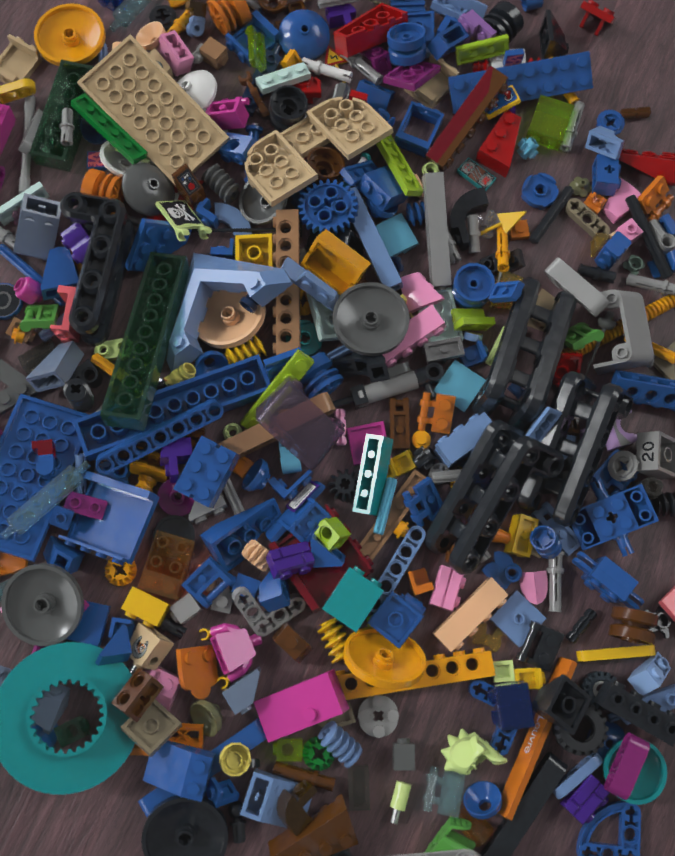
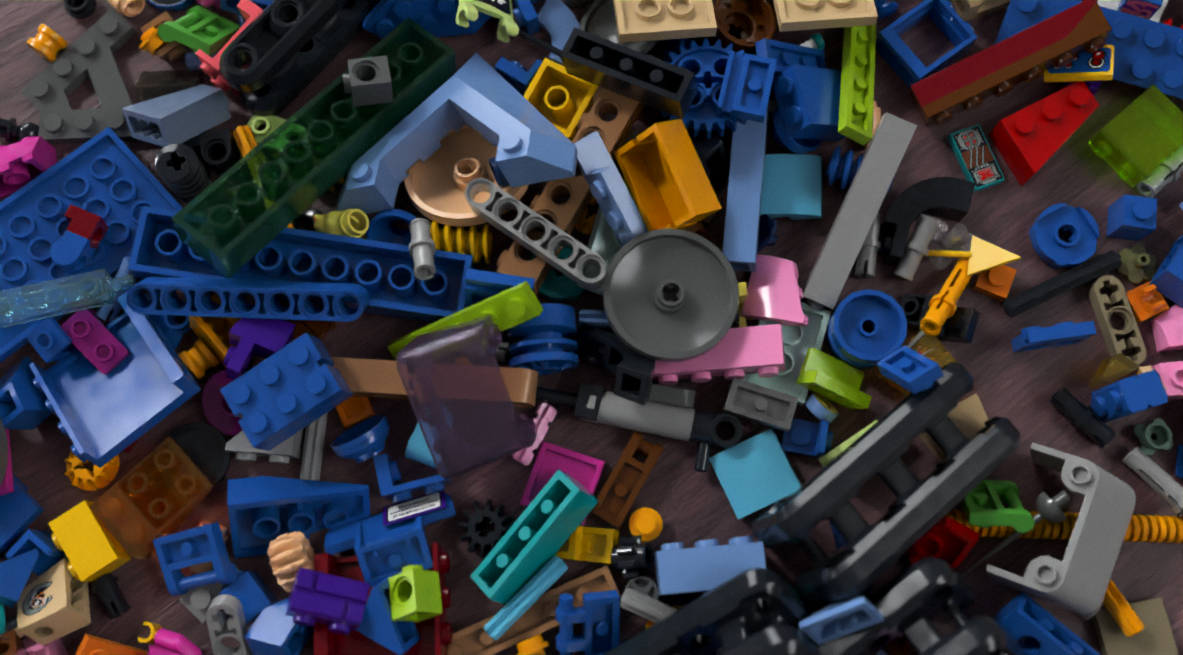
camera: 35 degrees right, 0 degrees up
(155, 293) = (368, 81): none -> dark grey brick
(185, 609) = (140, 579): light grey brick -> none
(232, 363) = (422, 249): none -> light grey pin
(232, 426) = (371, 341): yellowish green plate -> none
(279, 318) = (526, 221): none -> light grey beam
(287, 219) = (629, 72): none -> black brick
(349, 195) = (746, 86): none -> blue plate
(430, 166) = (909, 107): yellowish green plate -> none
(442, 412) = (701, 503): orange plate -> none
(527, 148) = (1083, 158): medium azure gear -> none
(561, 242) = (1054, 336): none -> blue plate
(566, 165) = (1132, 217): none -> blue brick
(569, 280) = (1033, 424): light grey beam -> none

